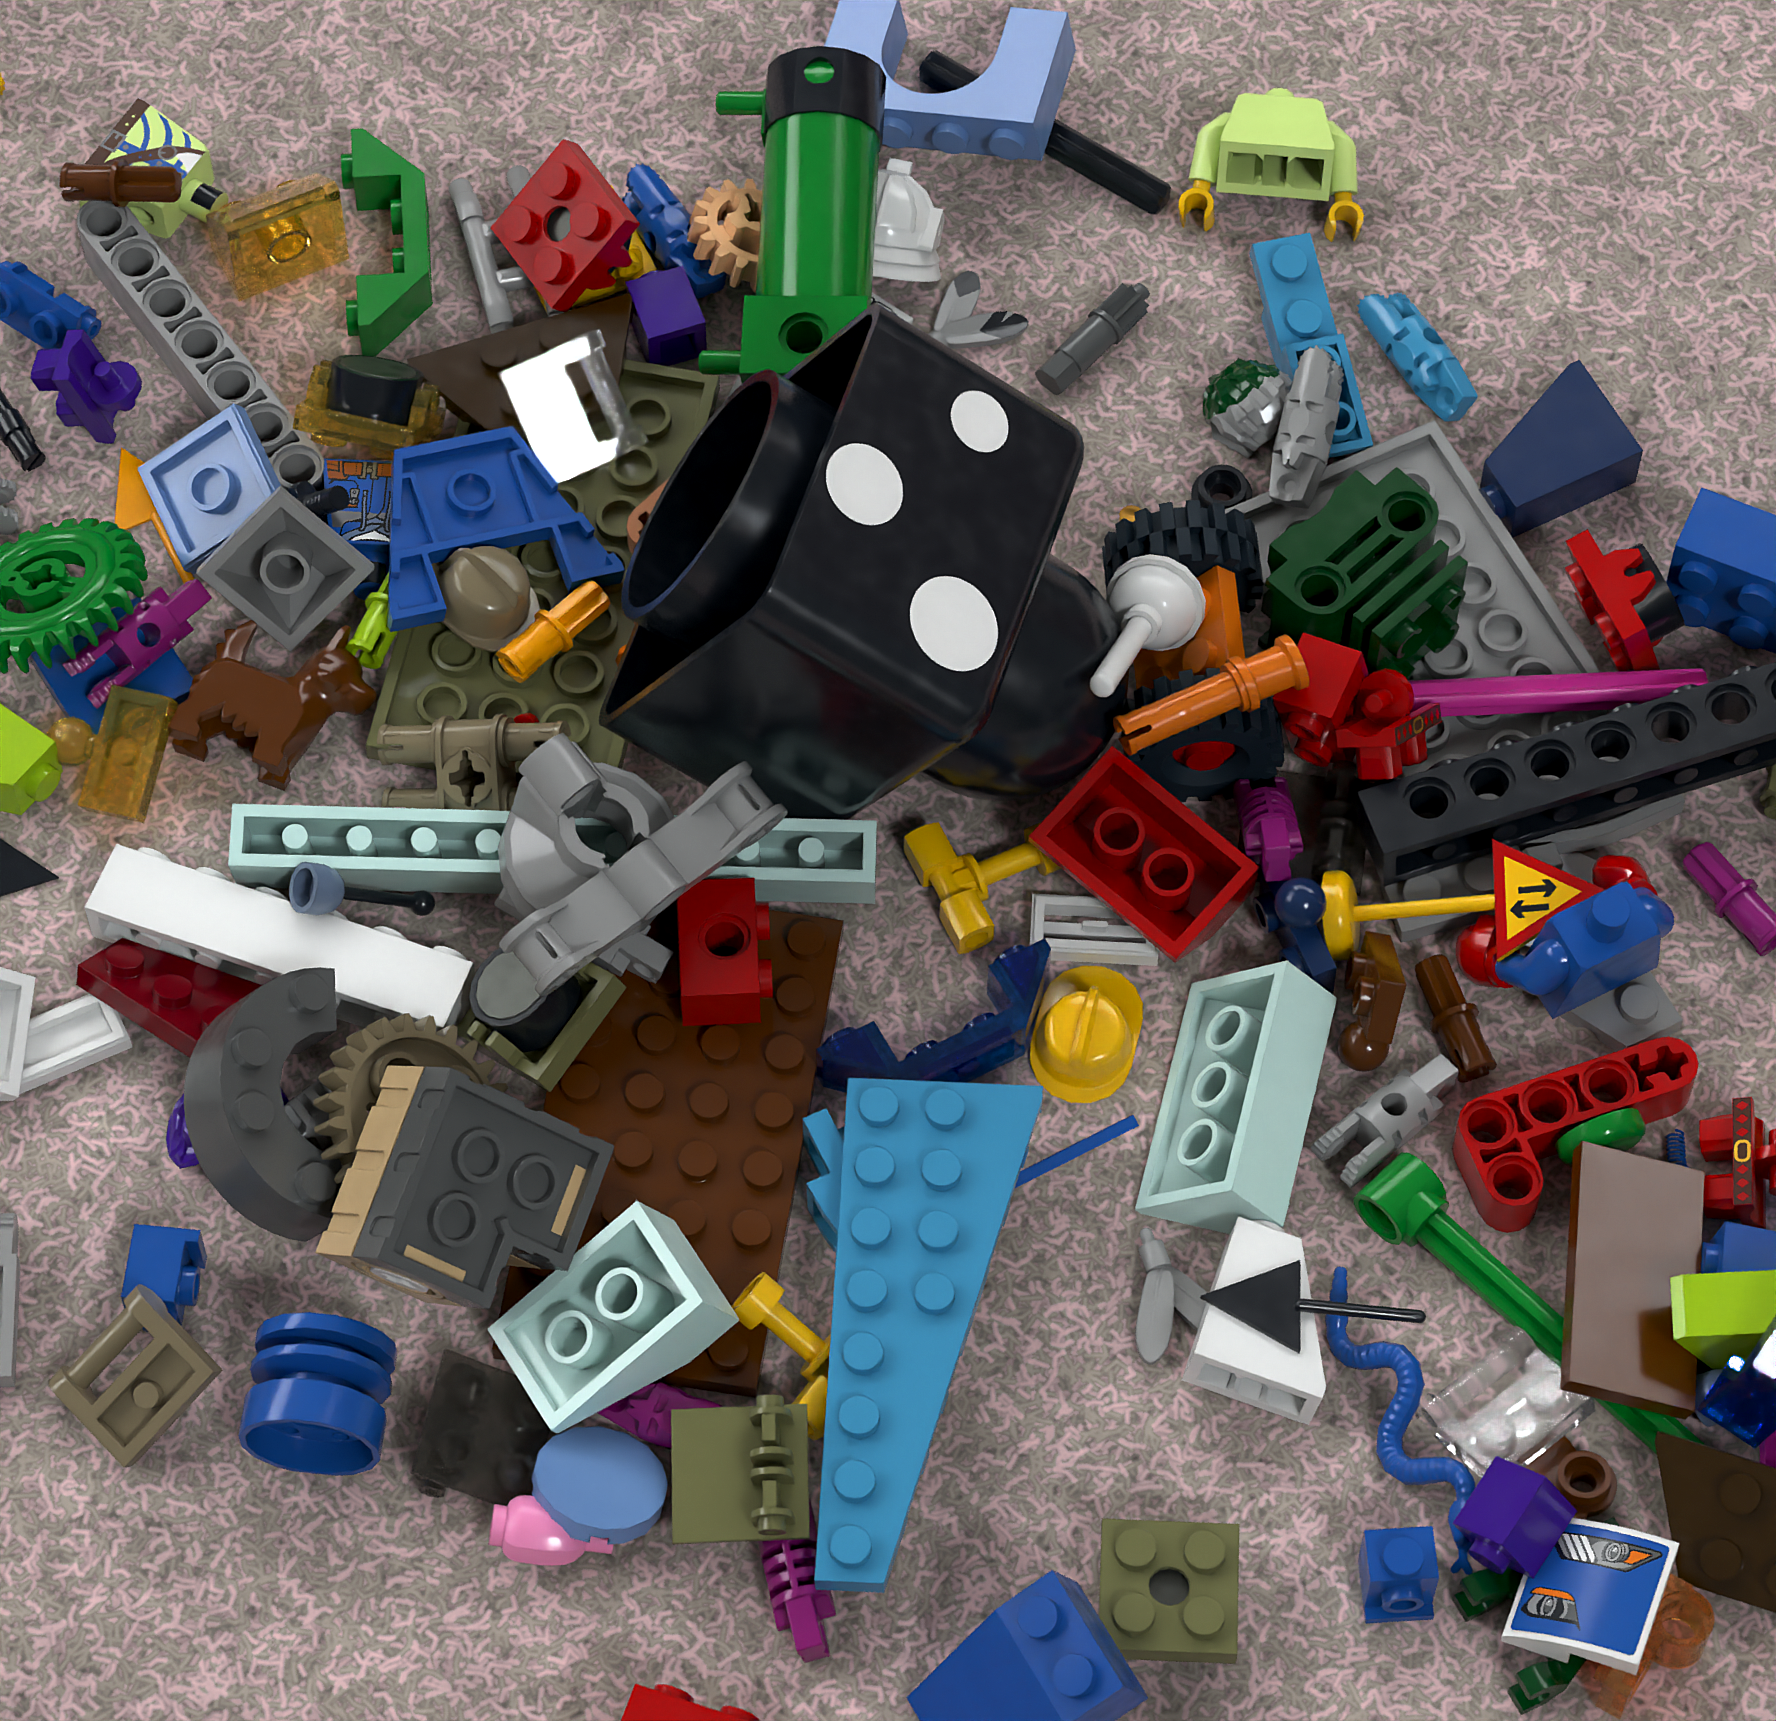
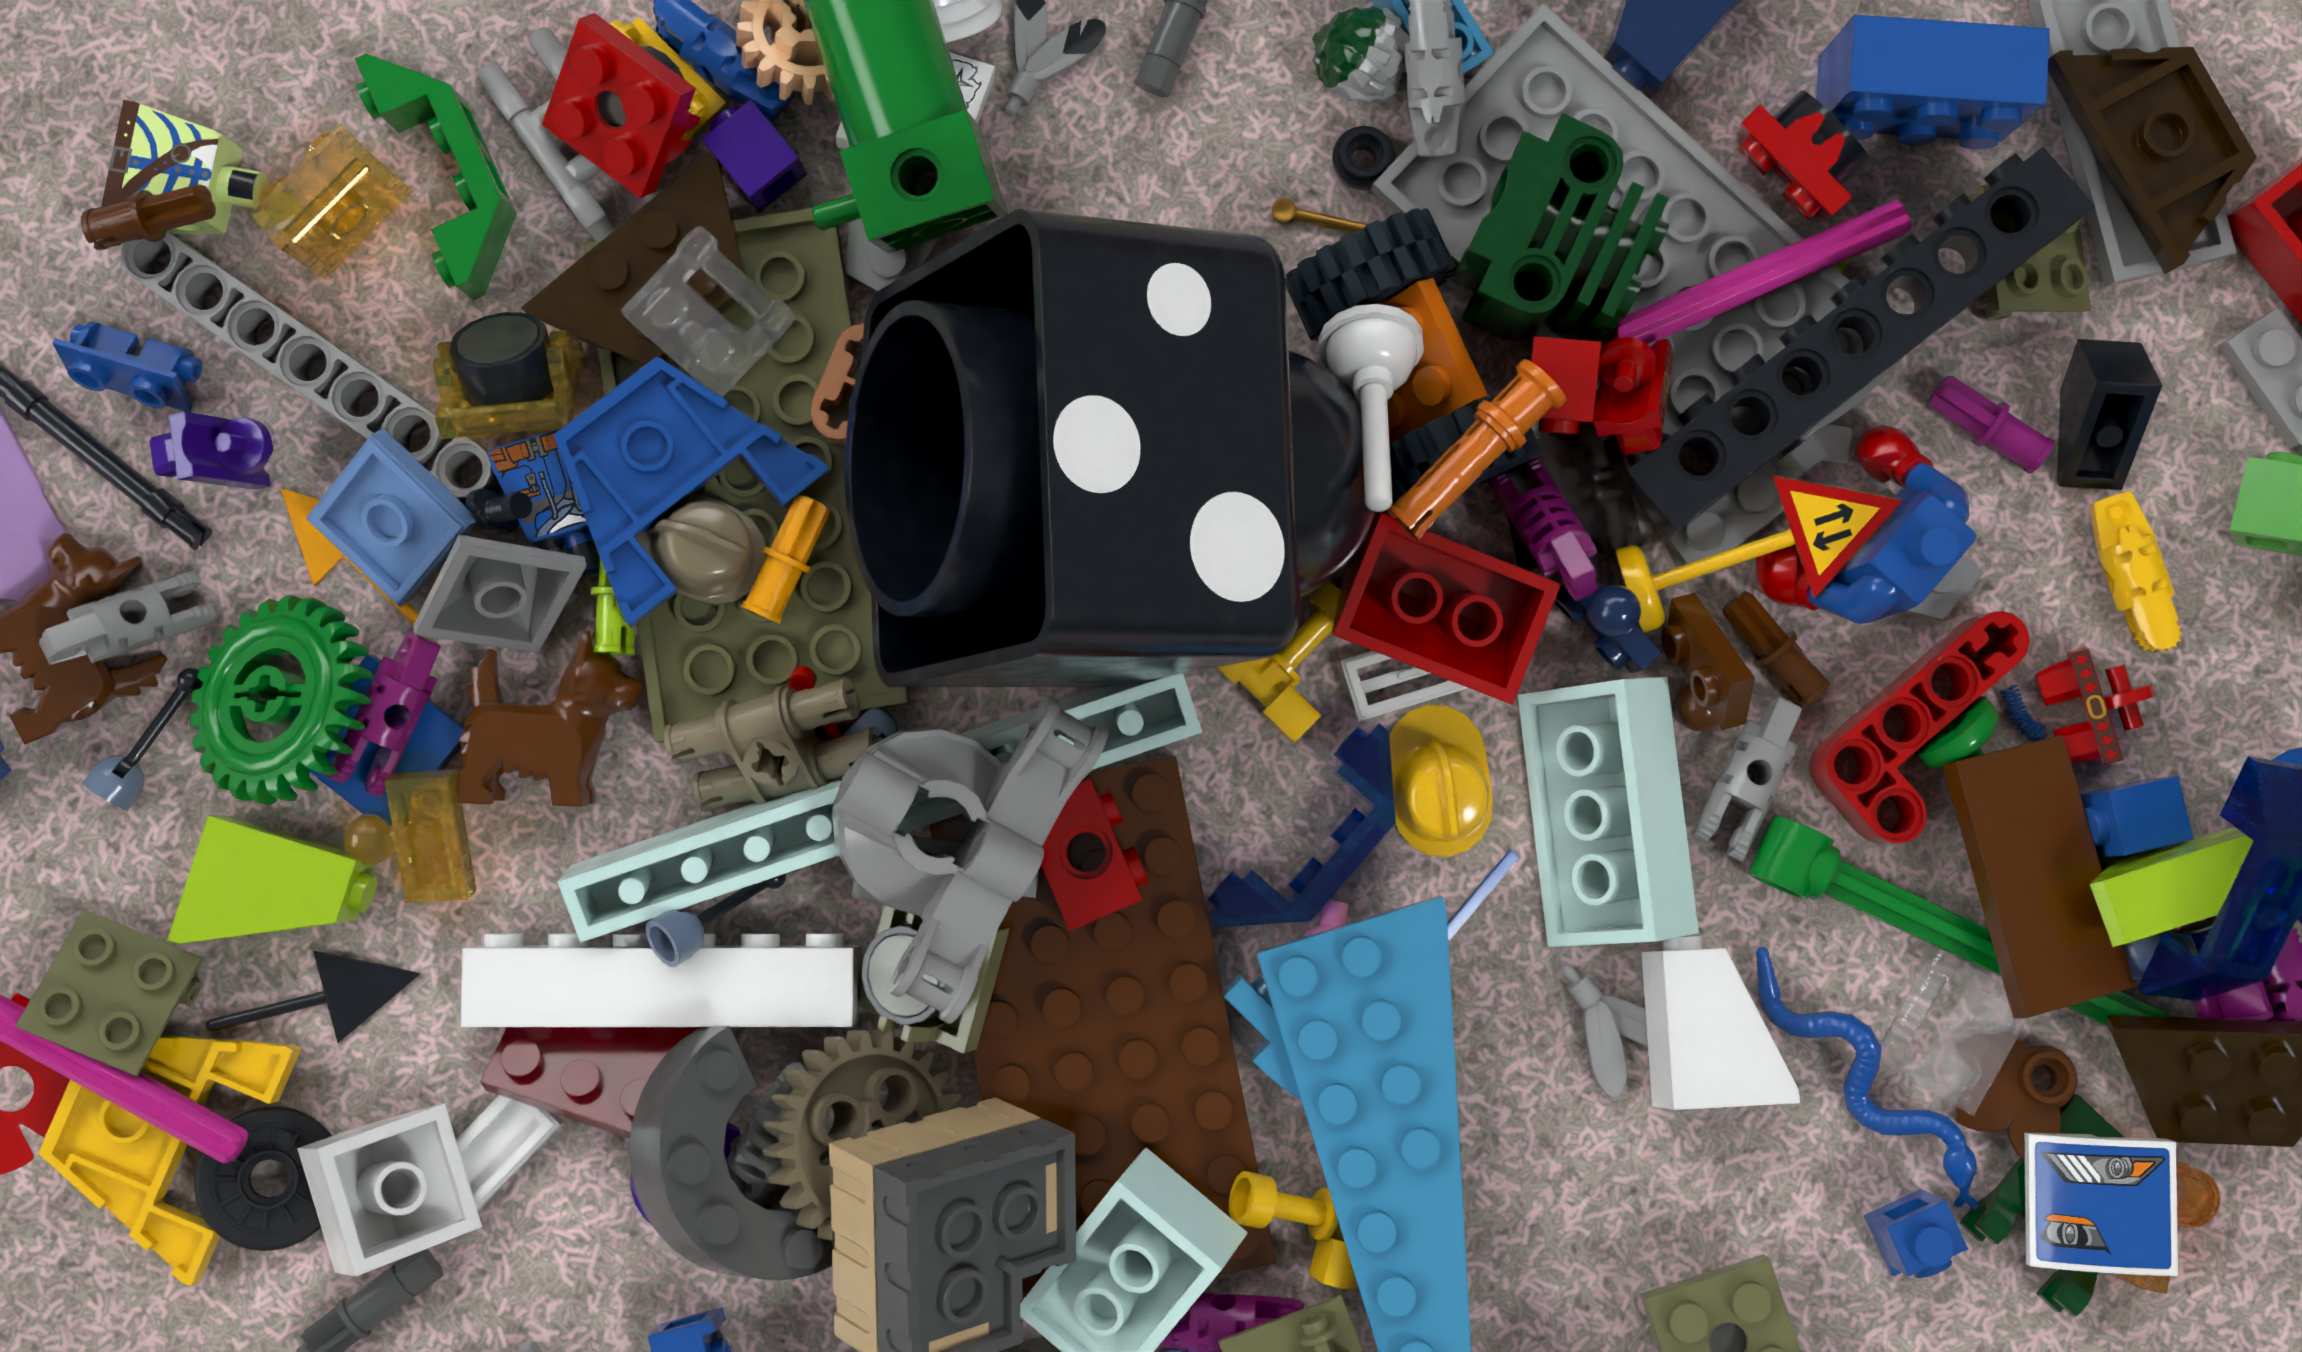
camera: 20 degrees left, 25 degrees up
(1274, 1305) = (1725, 1029): black piece -> none
(1513, 1518) = (2012, 1162): dark purple brick -> none

